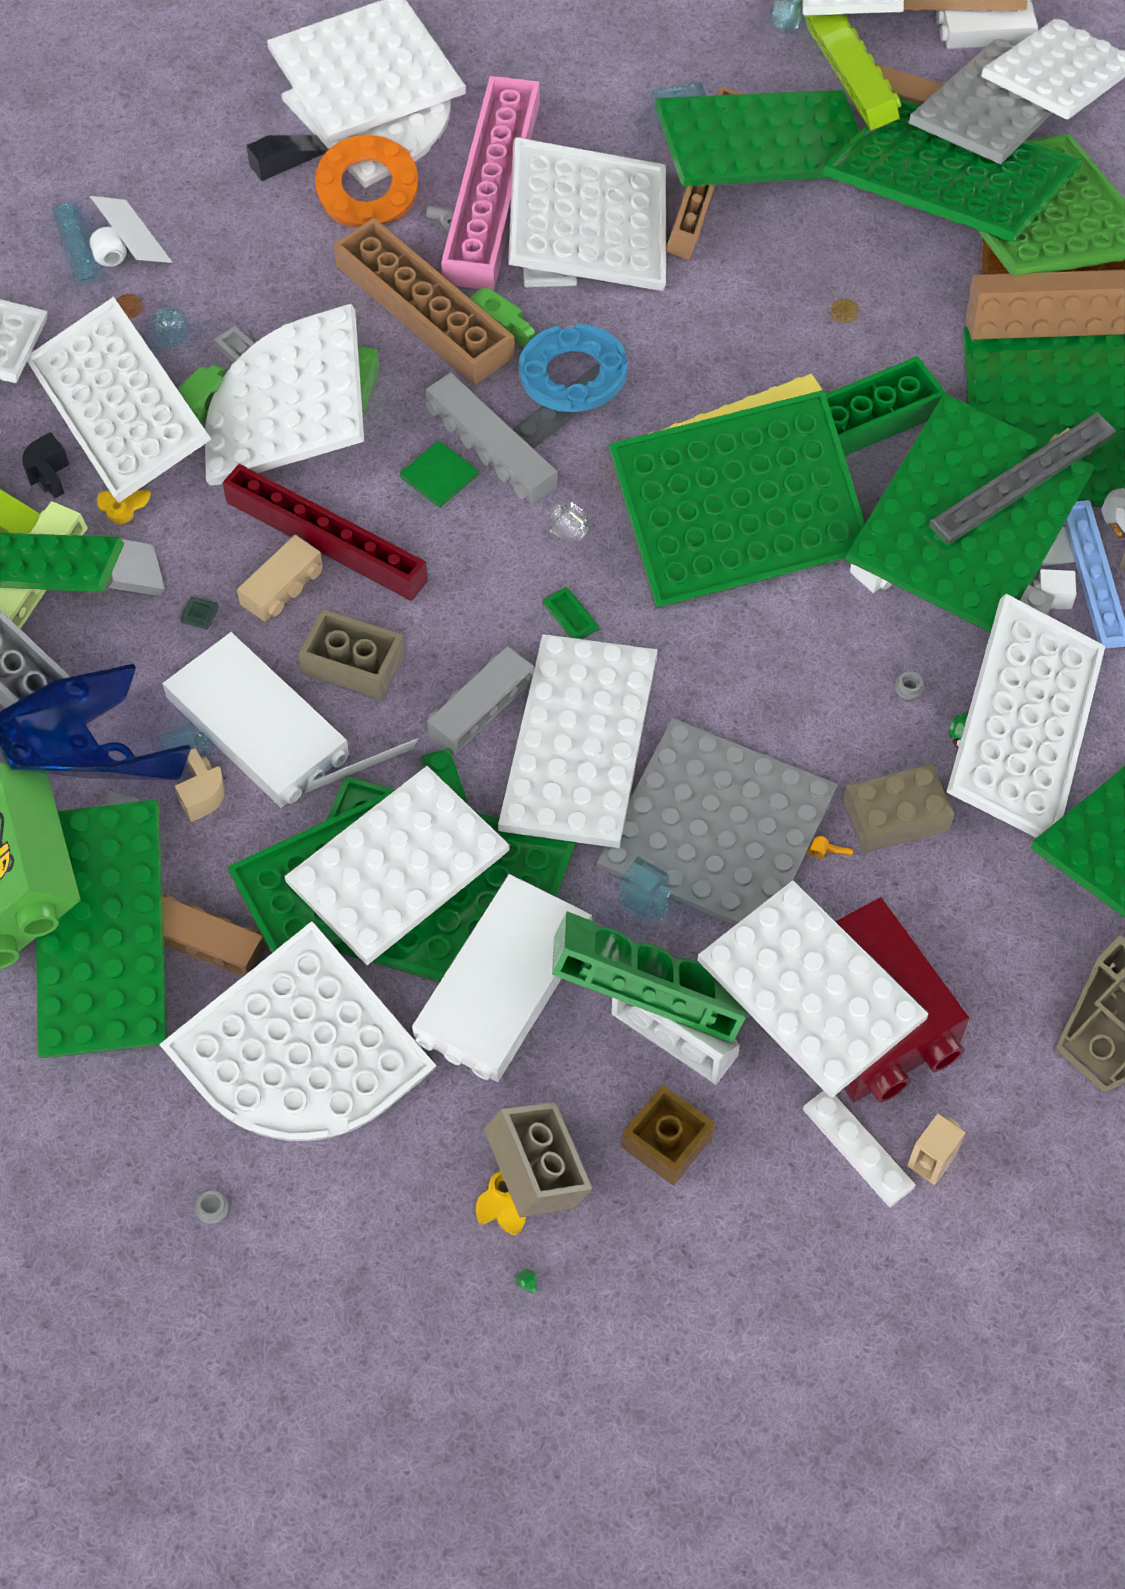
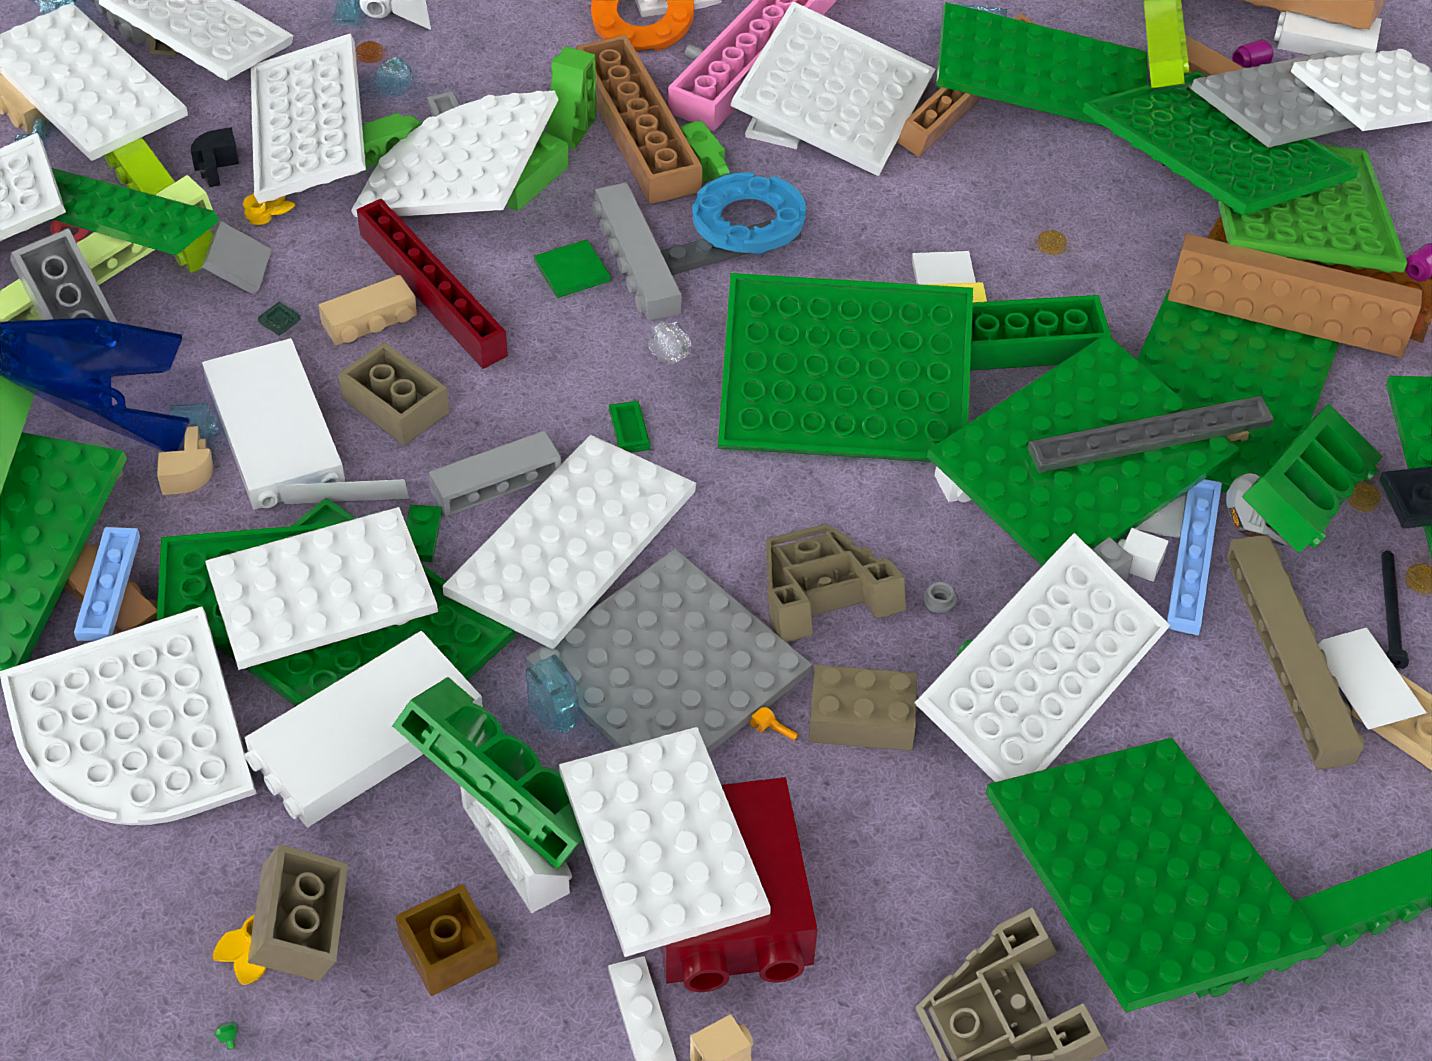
camera: 20 degrees right, 10 degrees down
(207, 928) = (107, 584): none -> light blue plate
(359, 288) = (576, 89): none -> bright green wedge
(765, 369) = (943, 267): none -> white tile
(806, 697) = (824, 577): none -> dark tan wedge
(933, 63) = (1253, 54): none -> magenta brick

